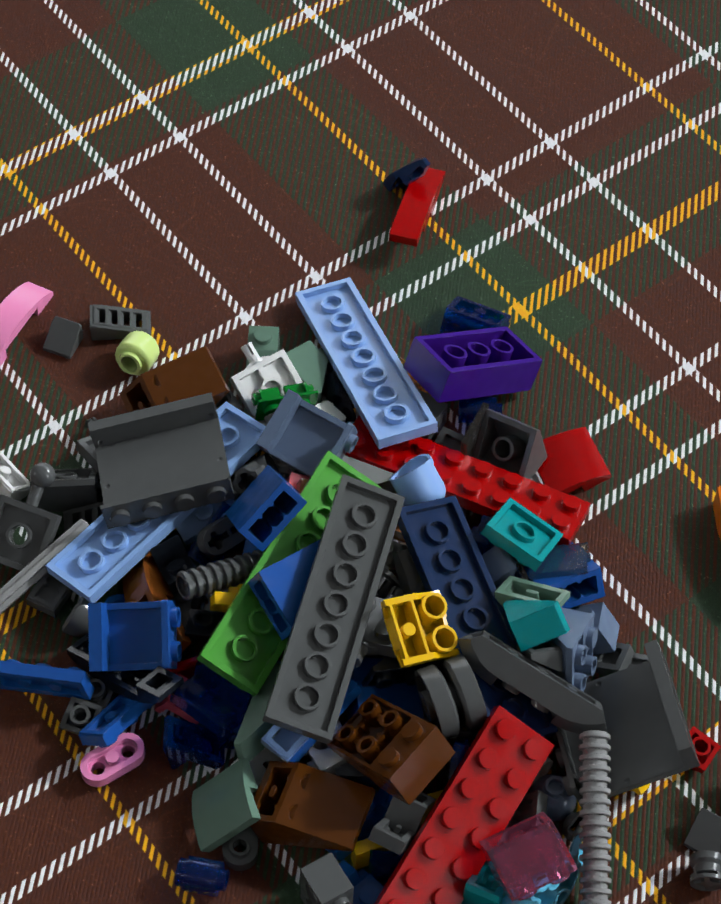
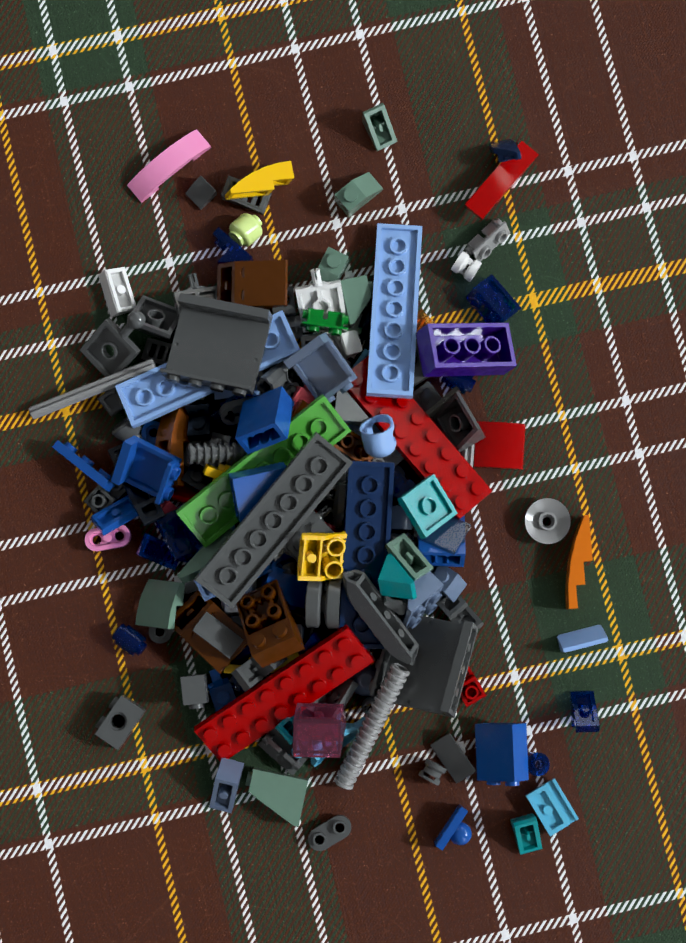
camera: 25 degrees right, 30 degrees up
(119, 374) = (234, 251): none -> clear blue slope
(134, 295) = (262, 181): none -> yellow slope
(245, 202) = (379, 126): none -> sand green slope
(253, 277) = (357, 193): none -> sand green slope
(325, 798) = (218, 635): none -> dark grey slope
(417, 296) = (461, 264): none -> white wheel
(435, 266) = (495, 232): none -> light grey hinge
(680, 508) = (555, 512): none -> light grey dish

